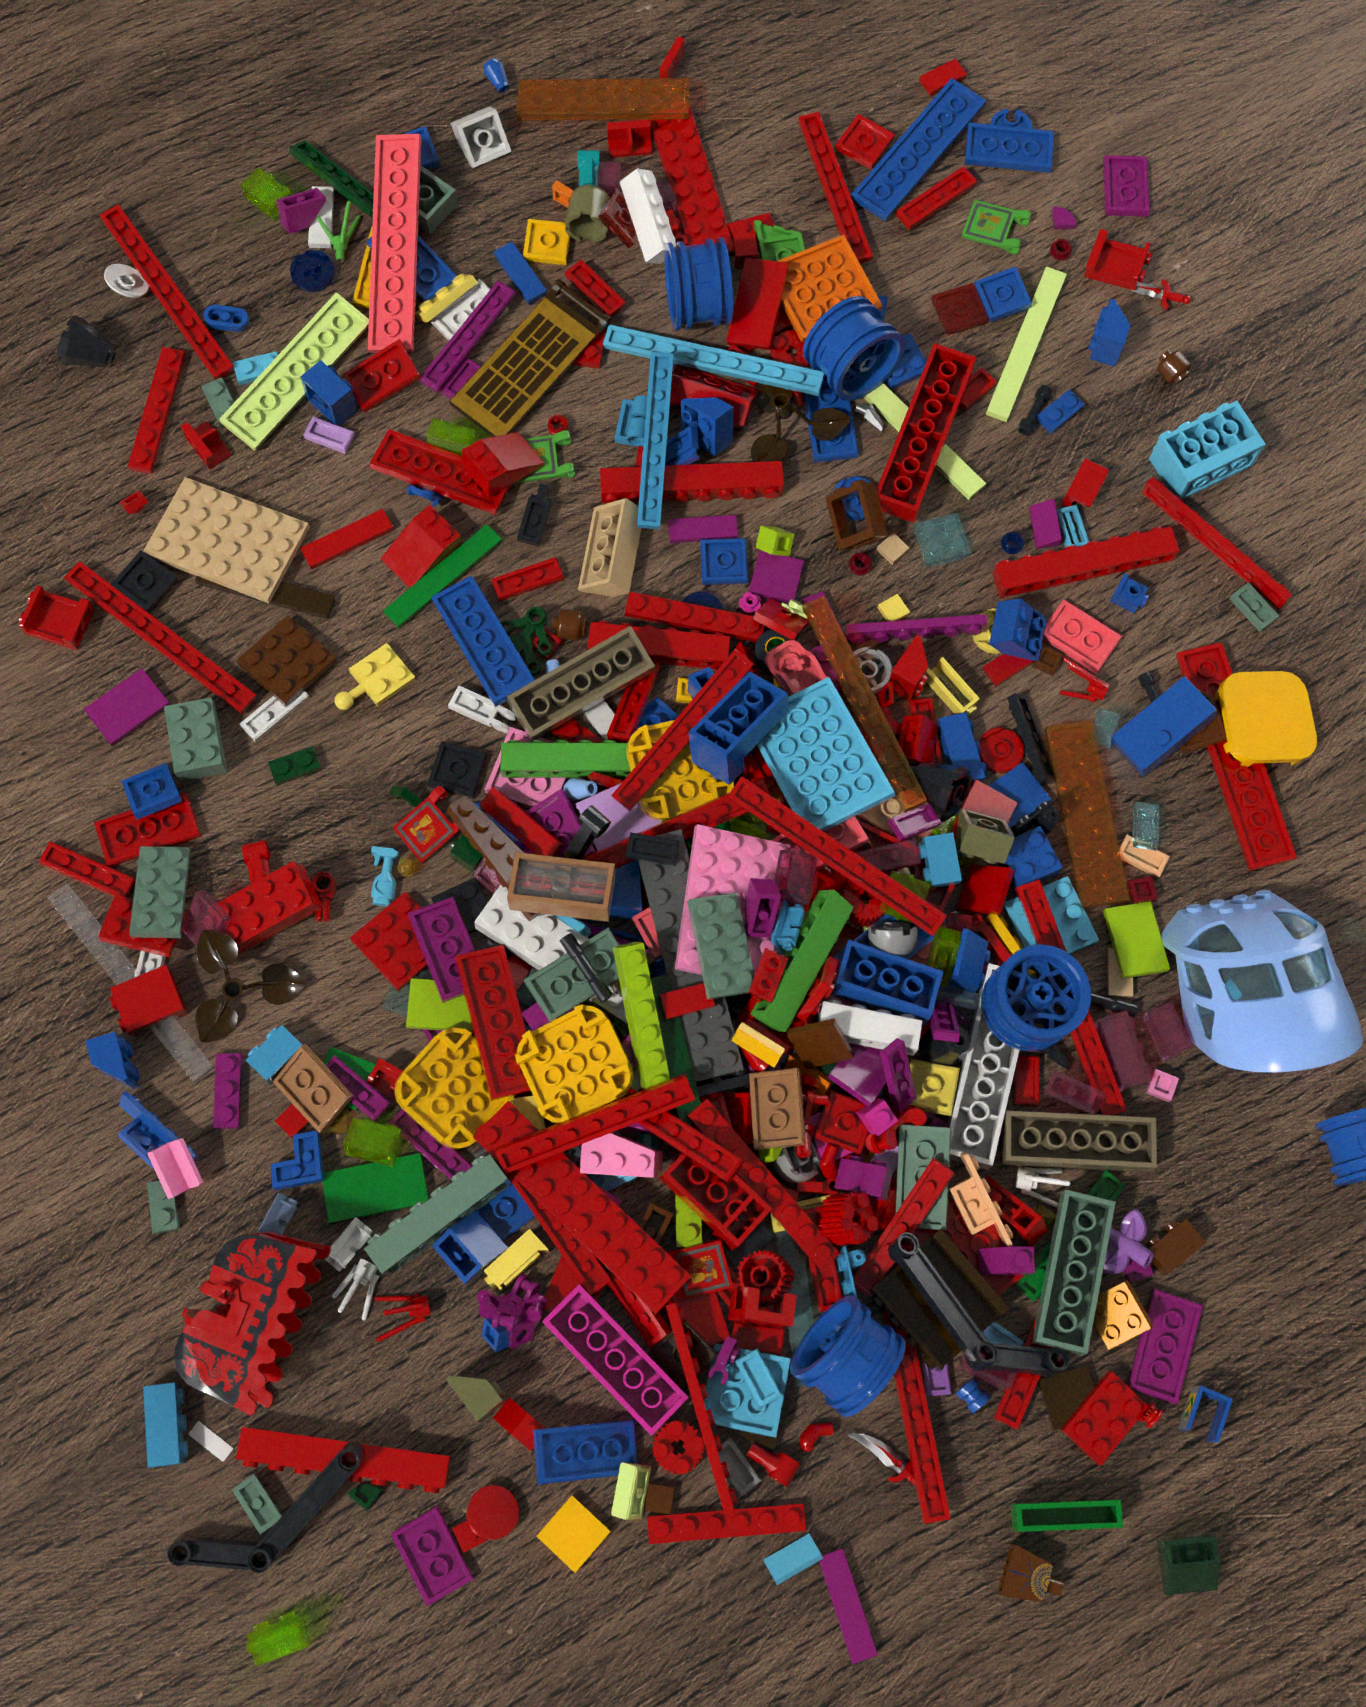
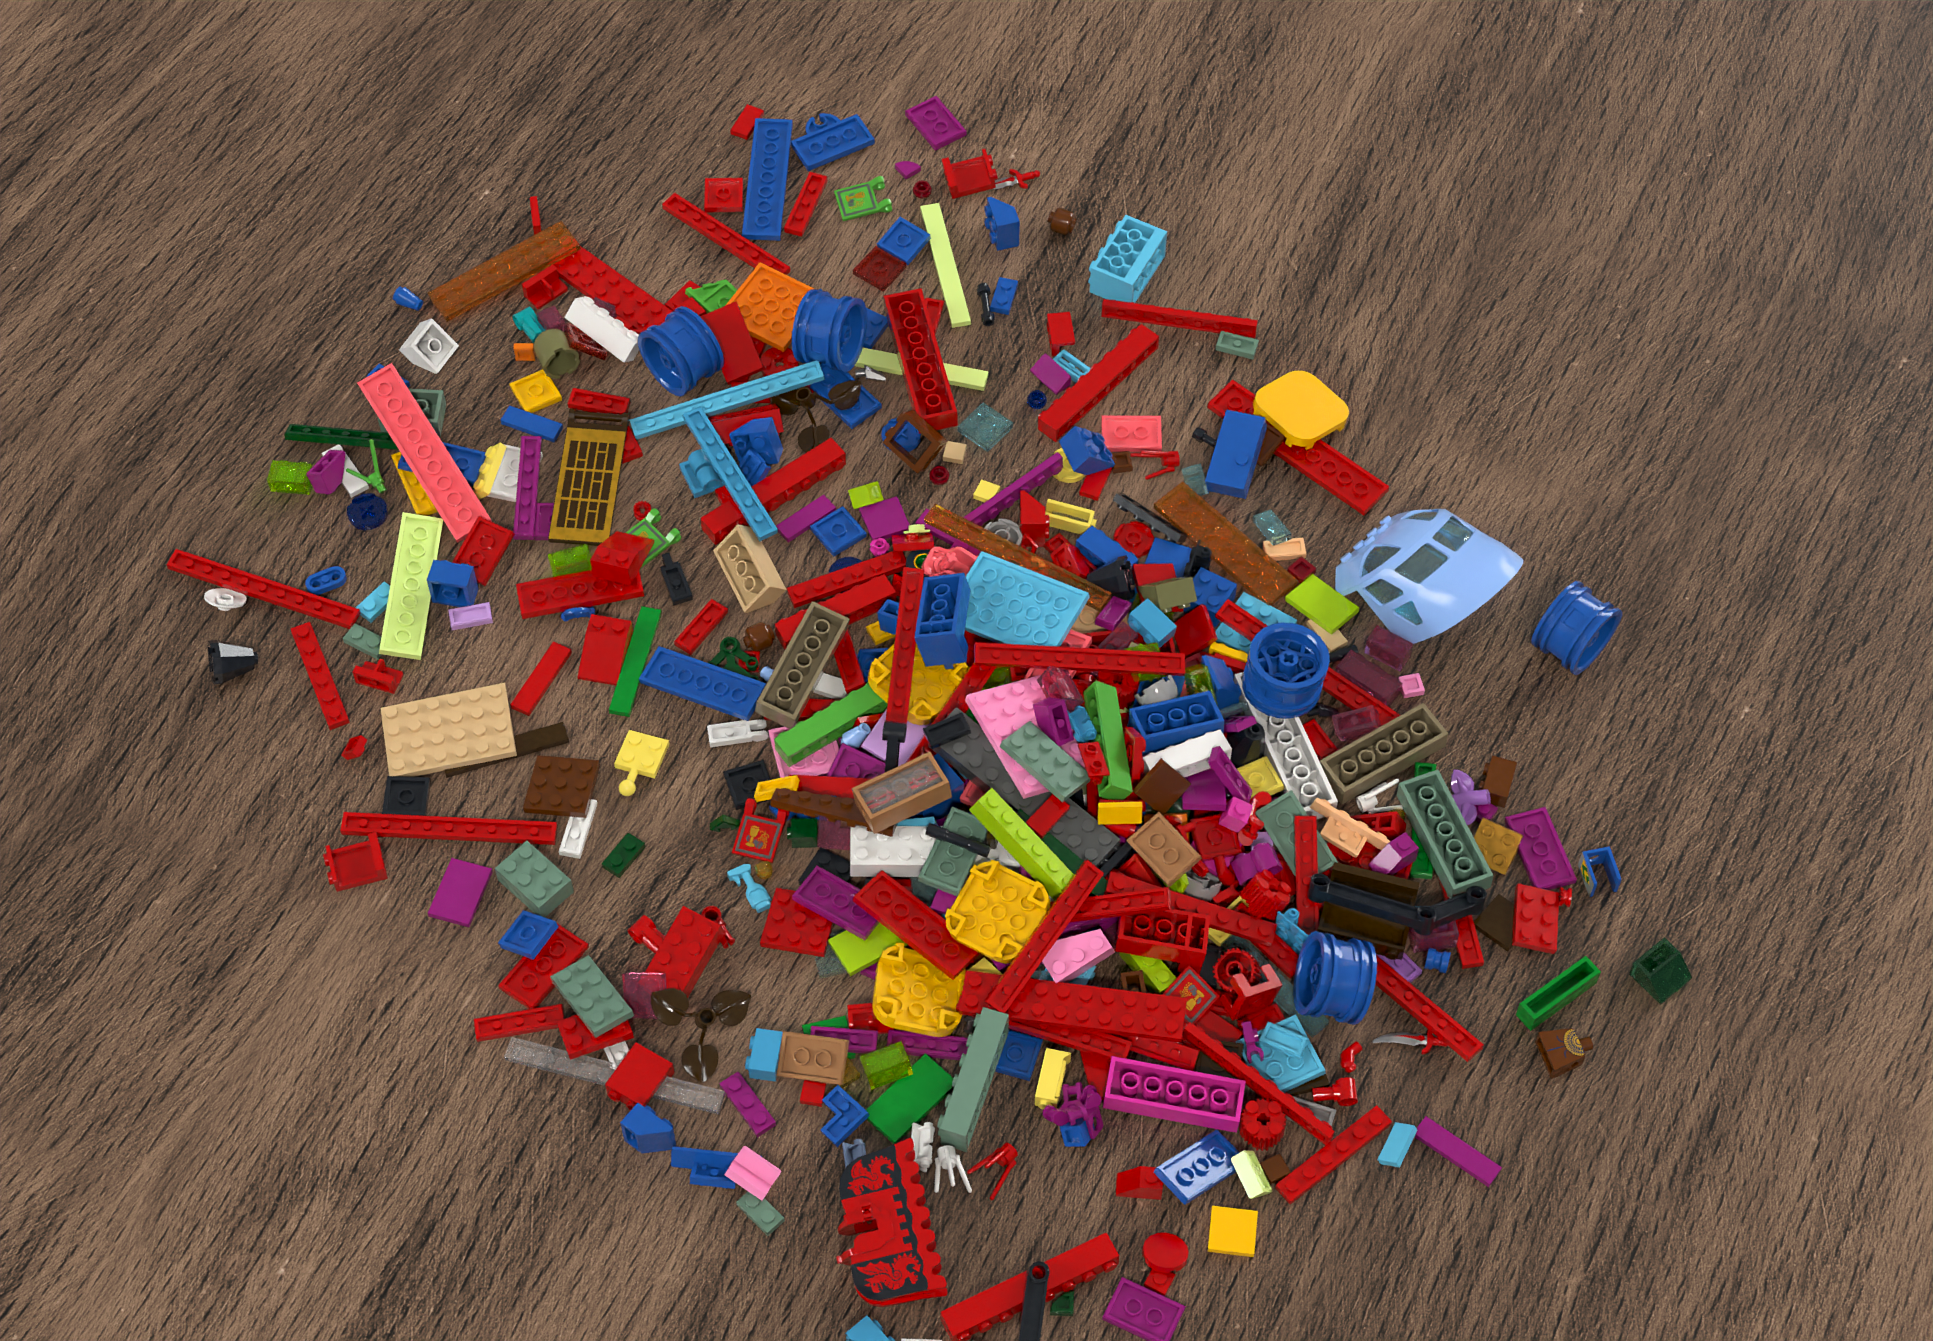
camera: 30 degrees left, 15 degrees down
(470, 1247) = (1012, 1089): blue slope -> none
(478, 794) = (766, 789): none -> yellow tile
(478, 1395) = (1093, 1179): olive slope -> none
(1130, 594) = (1145, 385): blue brick -> none

